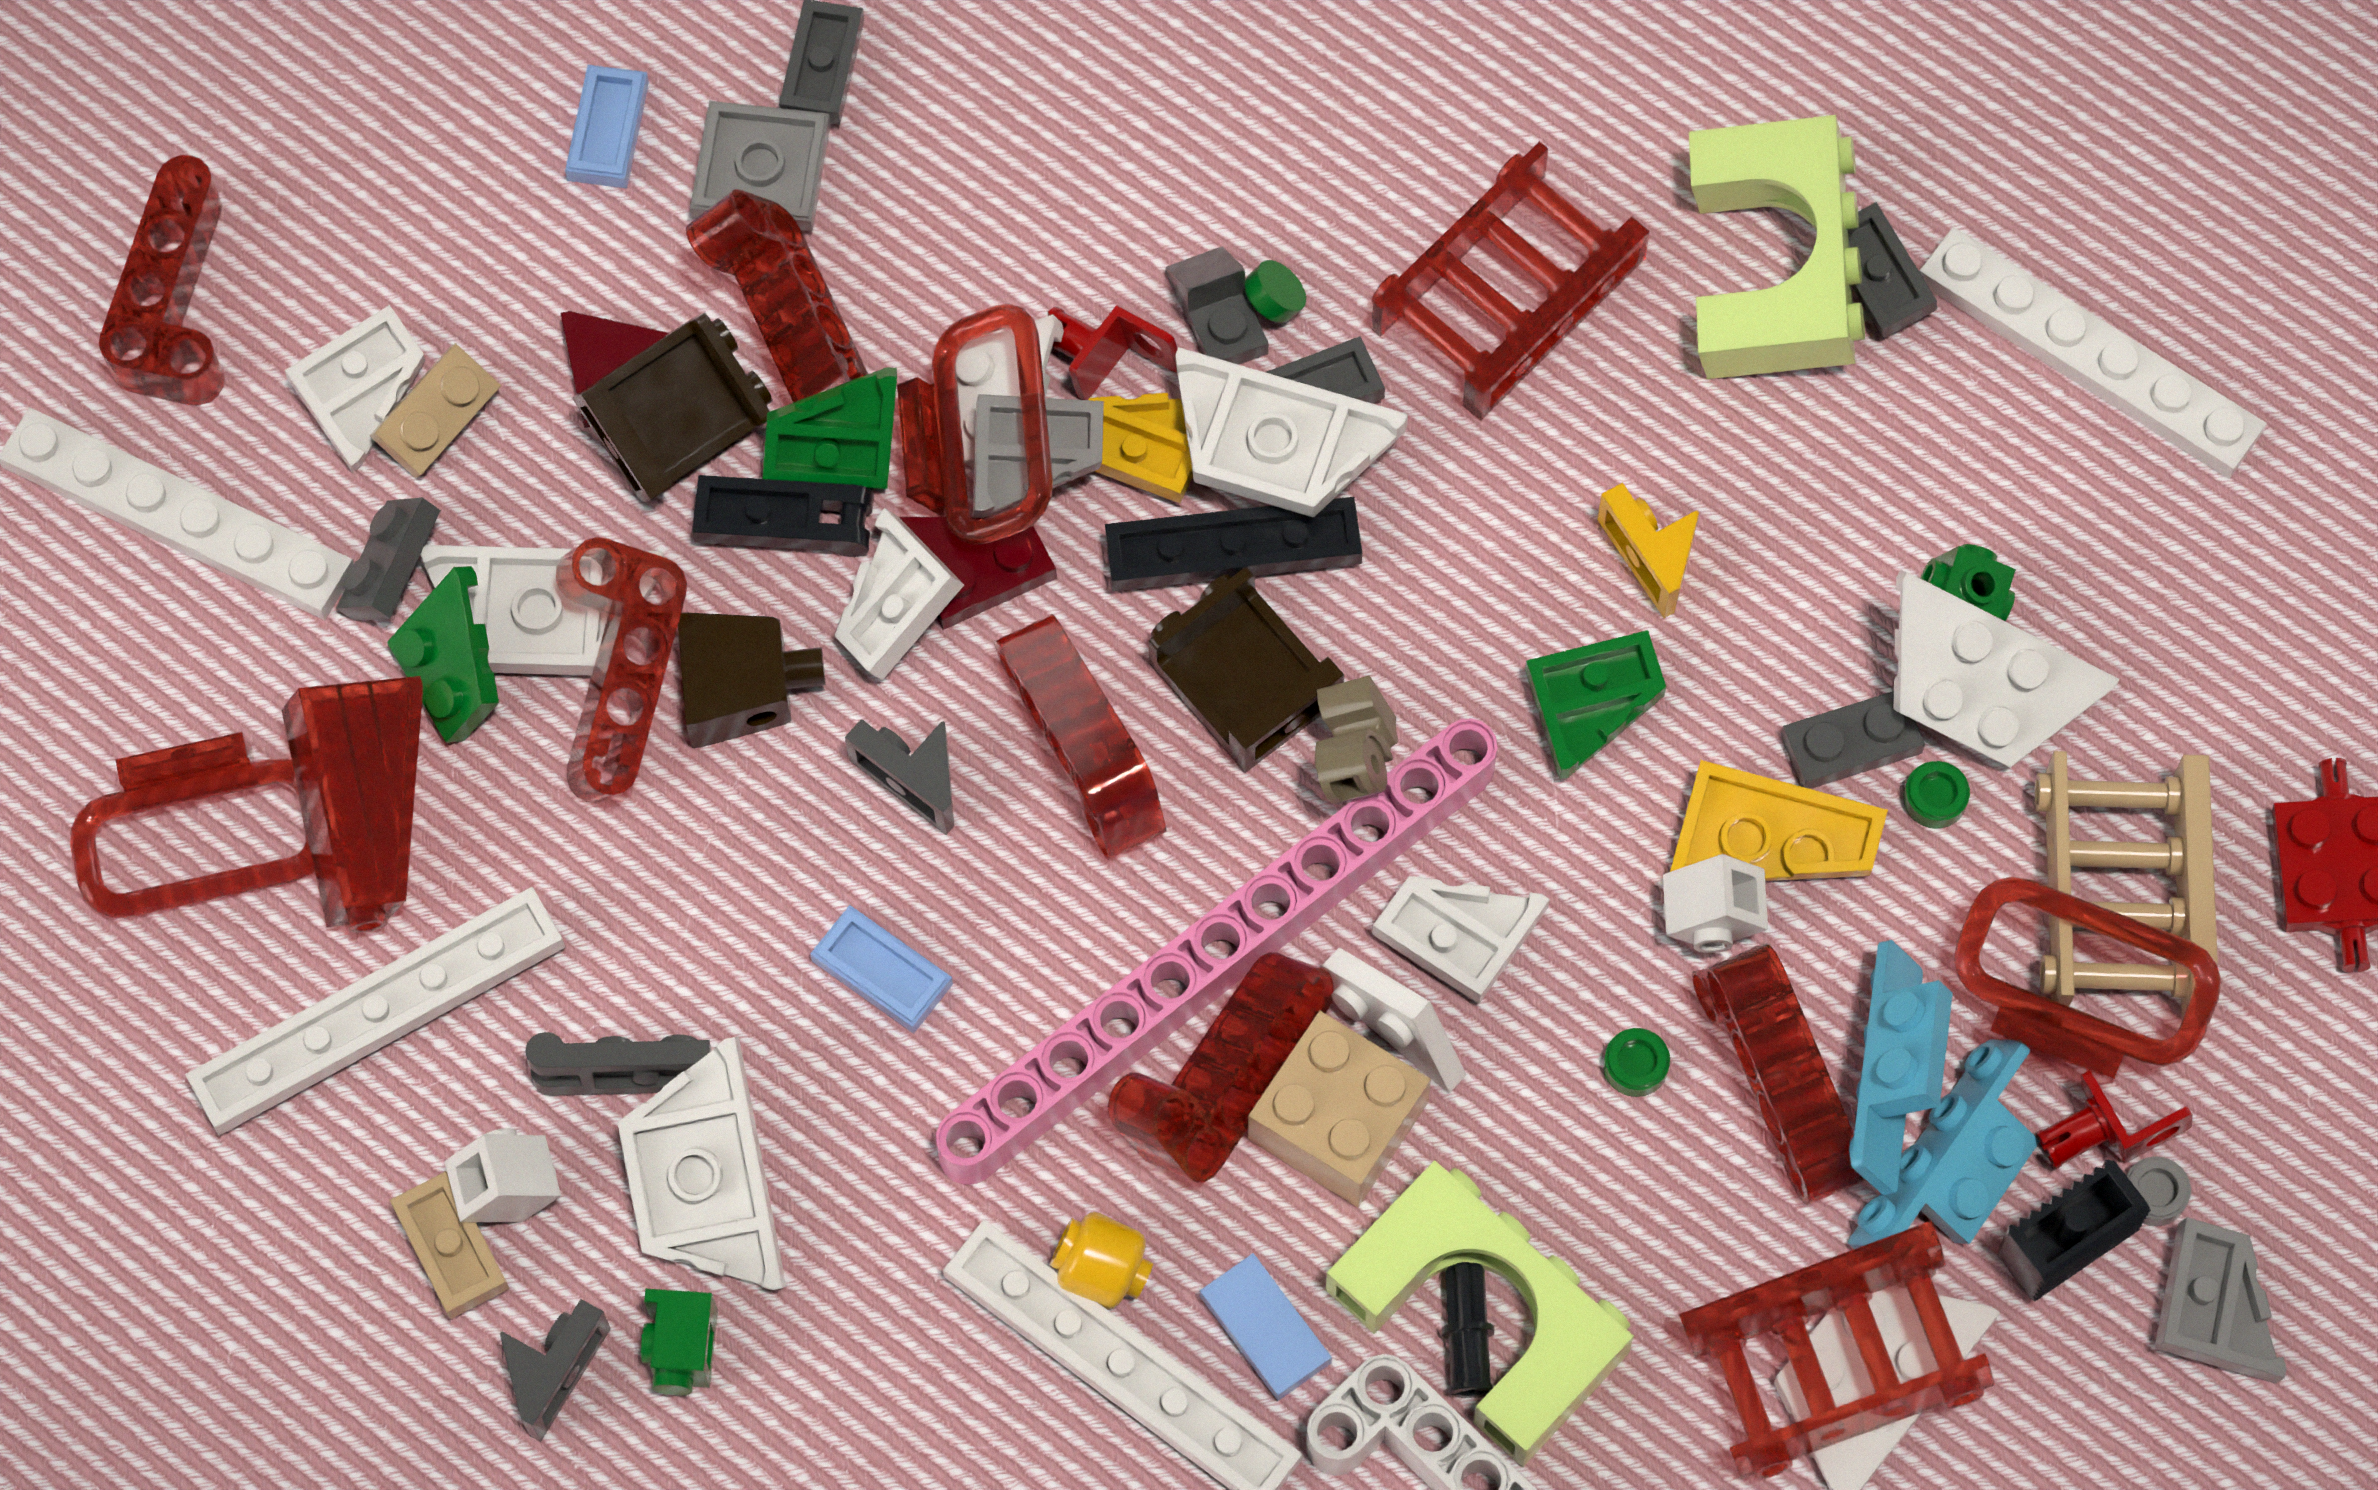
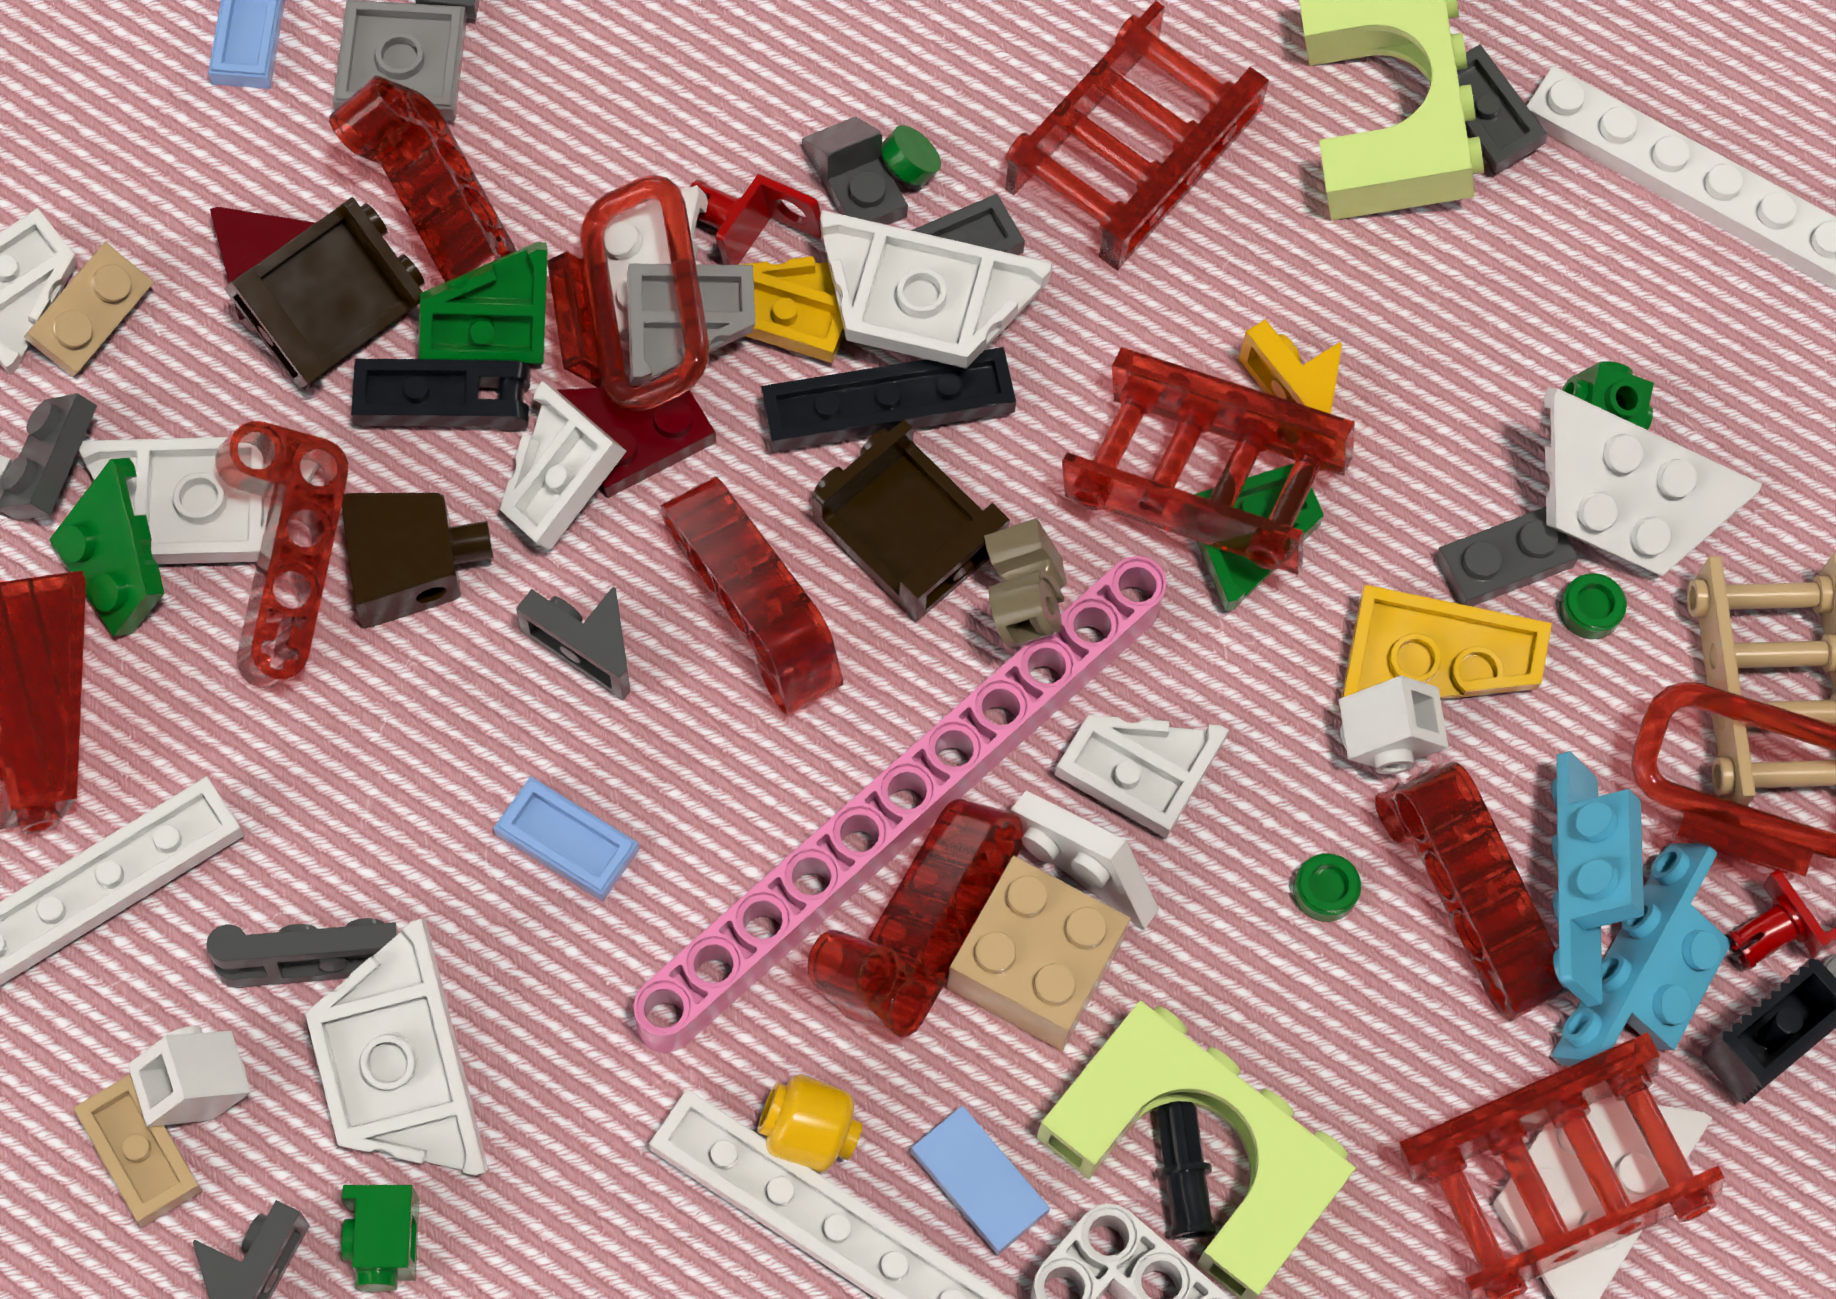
camera: 10 degrees left, 0 degrees up
(1573, 572) = (1226, 409): none -> clear red fence

